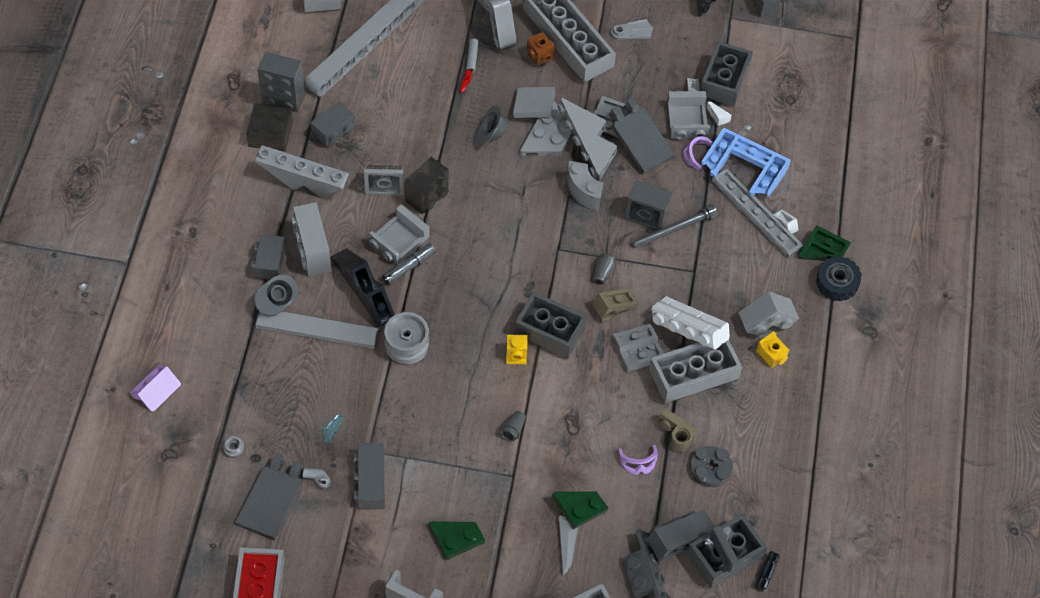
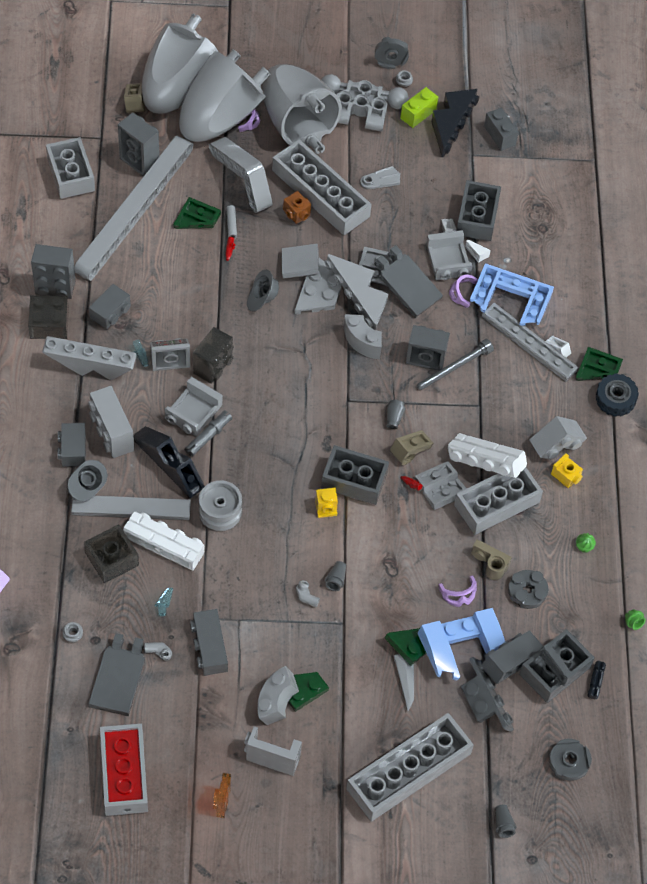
camera: 10 degrees left, 0 degrees up
(286, 372) = (111, 553): none -> clear smoke brick
(343, 366) = (163, 540): none -> white brick
(356, 174) = (140, 353): none -> clear light blue bar
(427, 540) = (275, 695): none -> light grey brick
(438, 44) = (197, 215): none -> dark green wing
(477, 442) = (304, 594): none -> light grey arm
(606, 503) = (438, 637): none -> light blue wedge
(609, 341) = (412, 483): none -> red helmet
(779, 426) = (585, 542): none -> bright green plate
(818, 513) = (635, 619): none -> bright green plate

